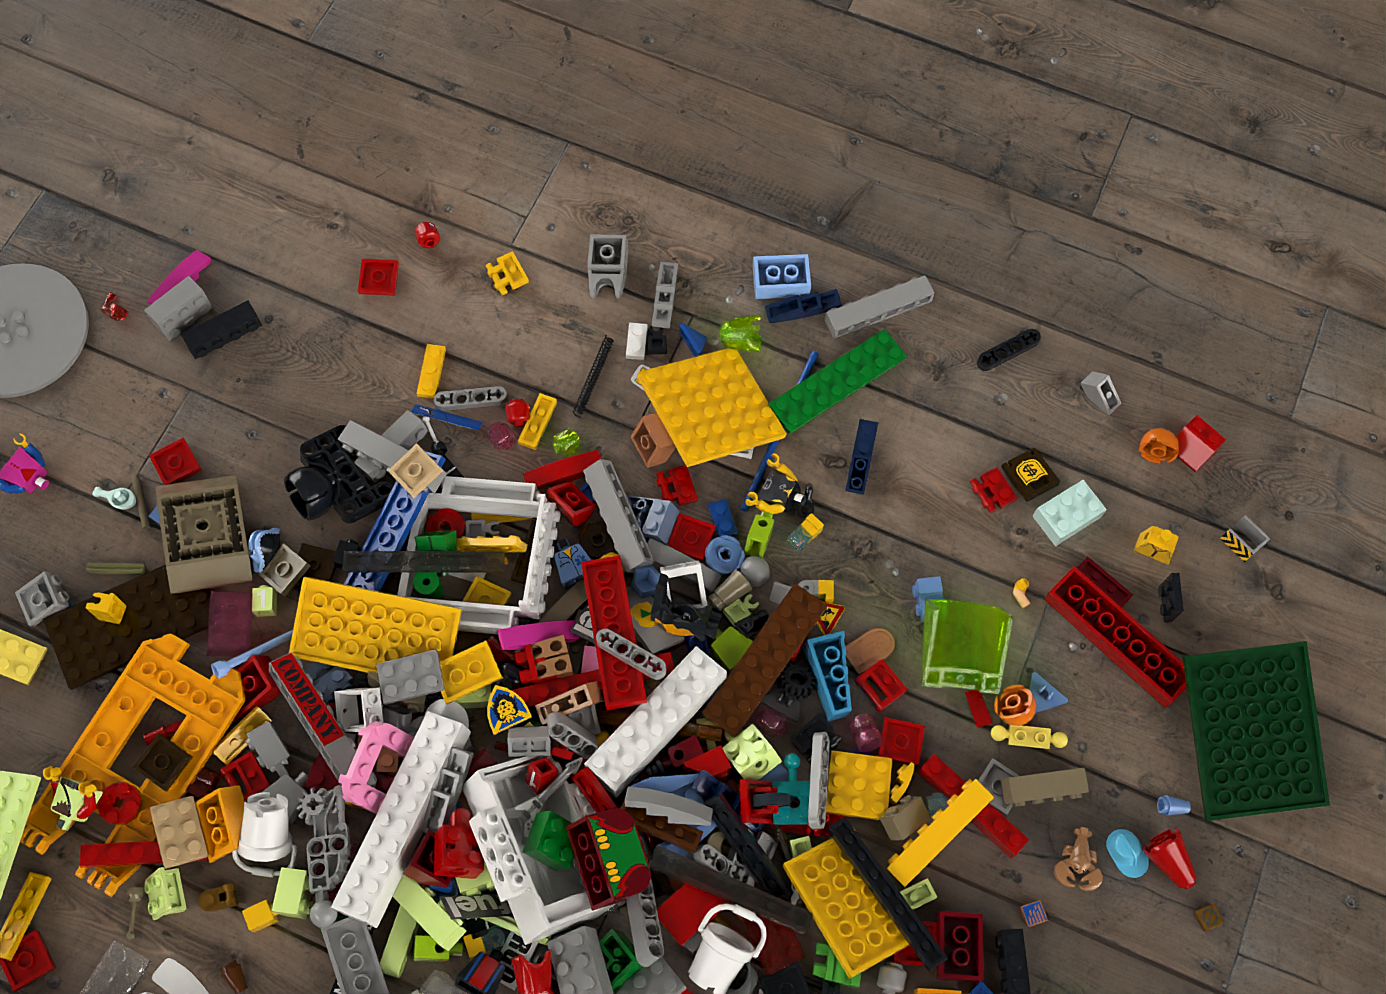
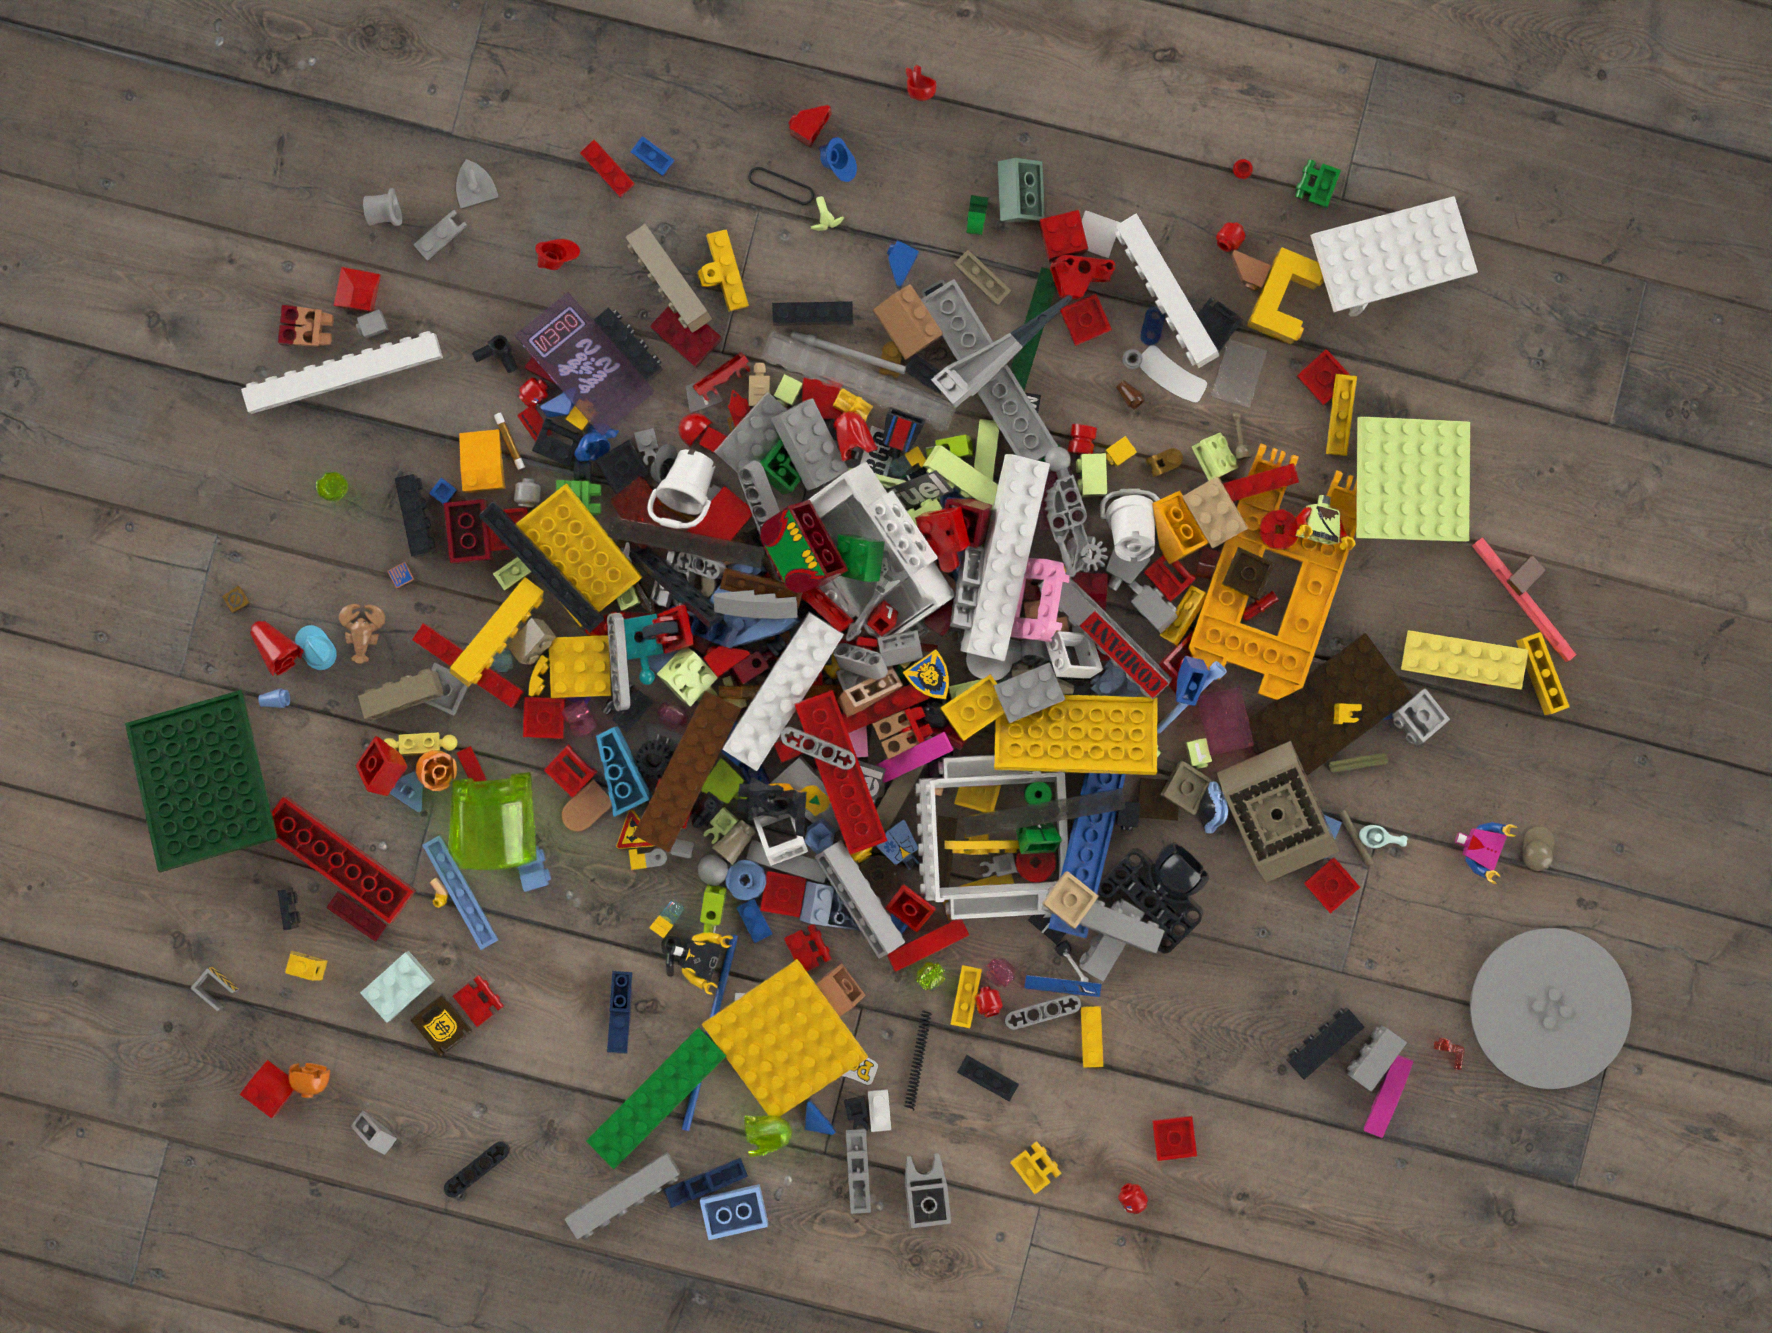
camera: 175 degrees right, 20 degrees up
(247, 663) = (1191, 680): none -> blue slope
(296, 935) = (1082, 439): none -> red wheel
(533, 351) = (988, 1078): none -> black plate
(1001, 587) = (460, 892): none -> medium blue plate
(1070, 718) = (380, 767): none -> red slope

